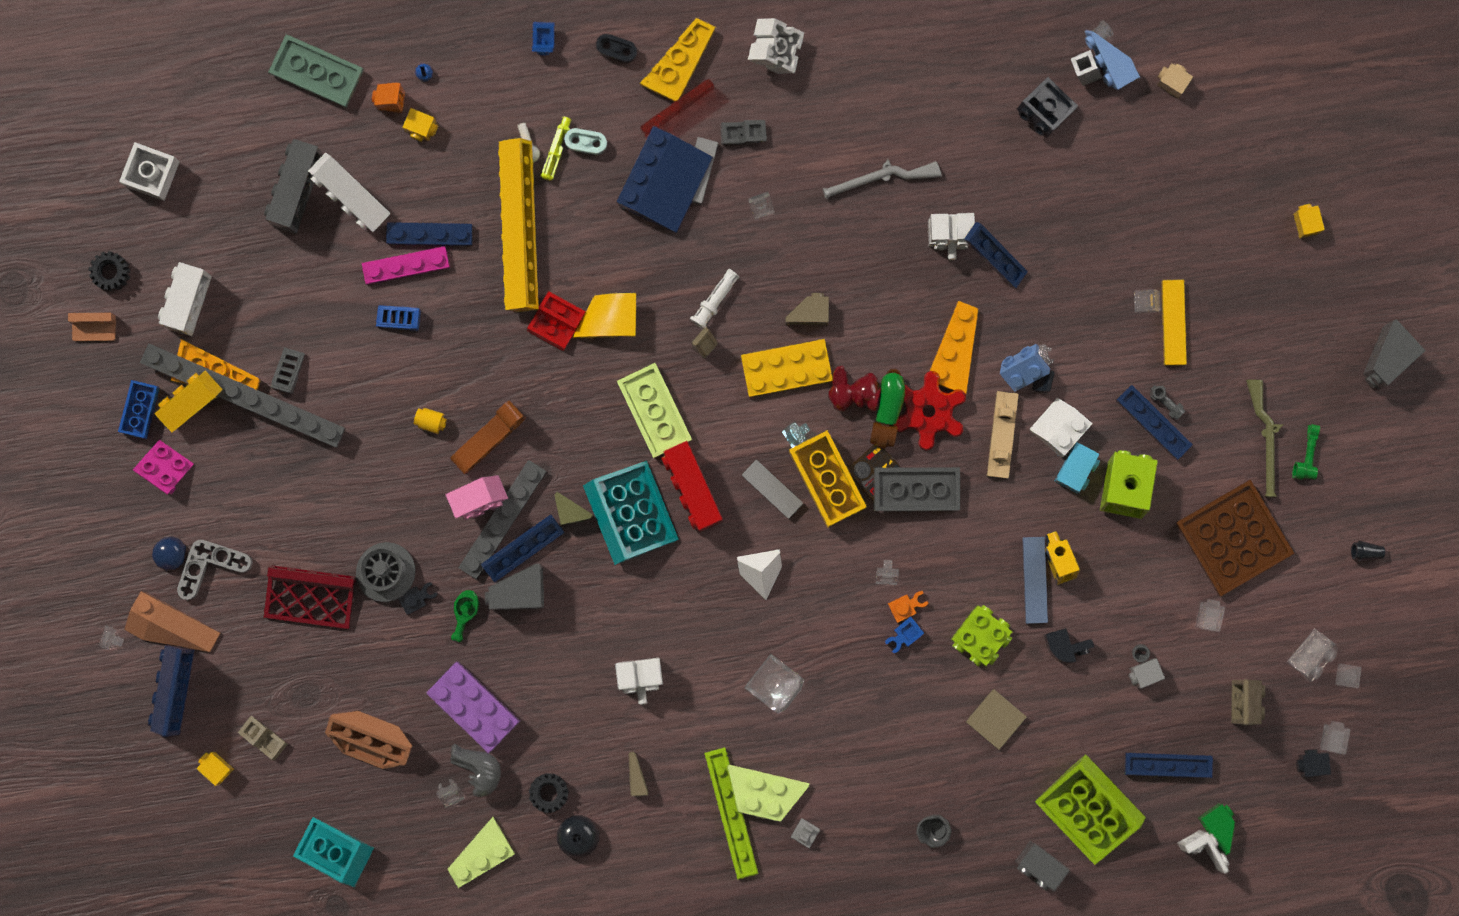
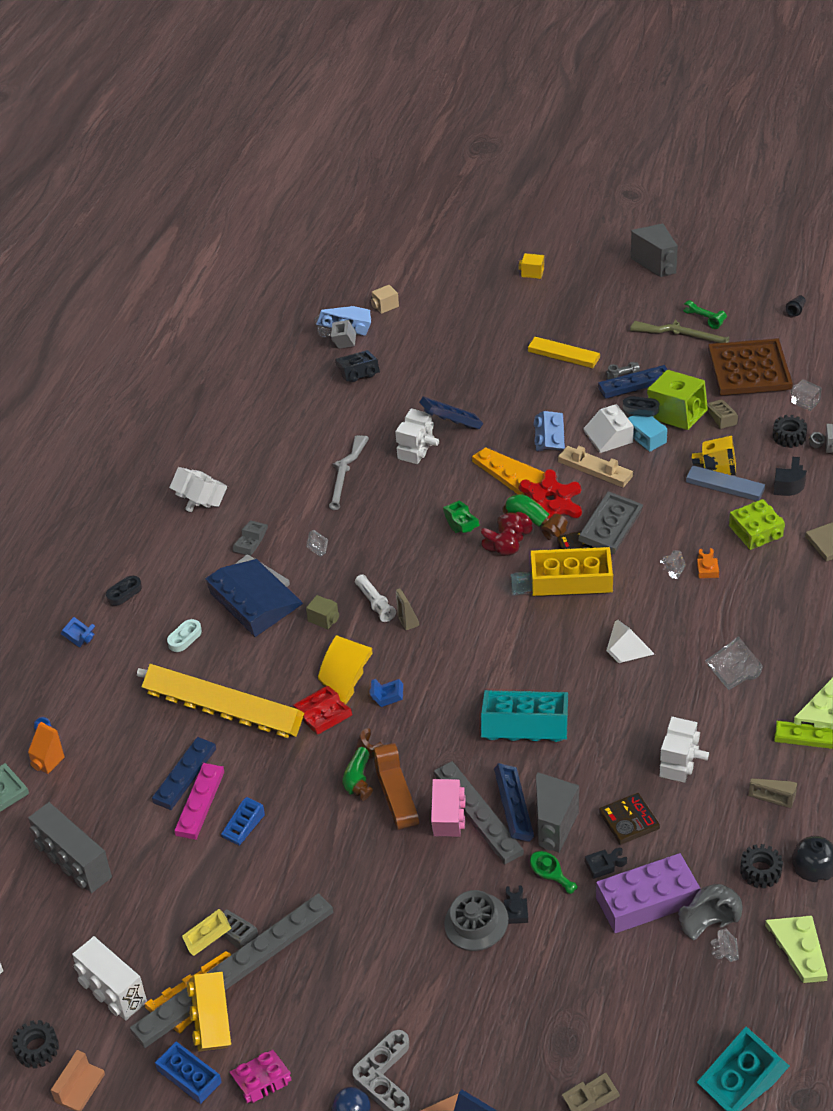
camera: 60 degrees left, 40 degrees down
(269, 352) = (206, 932): none -> light yellow plate
(314, 578) = (446, 986): dark red fence -> none
(349, 192) = (105, 801): white brick -> none
(369, 739) = (642, 990): nougat wedge -> none
(420, 125) = (85, 741): yellow brick -> none
(430, 420) = (353, 829): yellow brick -> none
(488, 390) = (353, 776): none -> piece
(491, 654) = (603, 863): none -> black plate
(553, 657) = (629, 818): none -> tile
(556, 149) = (177, 658): neon yellow piece -> none
(570, 512) = (497, 752): olive slope -> none
(598, 371) = (386, 693): none -> blue bracket
(654, 410) = (444, 667): yellowish green plate -> none
(672, 260) = (322, 612): none -> olive brick
(677, 66) = (166, 556): yellow wing -> none
(677, 107) = (200, 566): clear red tile -> none
(692, 486) = (527, 656): red brick -> none
(772, 489) = (559, 615): light grey tile -> none
(786, 368) = (461, 574): yellow plate -> none
(810, 311) = (425, 540): dark tan slope -> none
(856, 334) = (460, 517): none -> green brick
(907, 633) = (732, 569): blue plate -> none
(1044, 384) = (570, 428): black slope -> none
(1098, 451) = (641, 406): none -> black plate
(1134, 628) = (786, 424): none -> black tyre
(1145, 545) = (722, 414): none -> dark tan slope
(1147, 301) = (538, 360): clear slope -> none

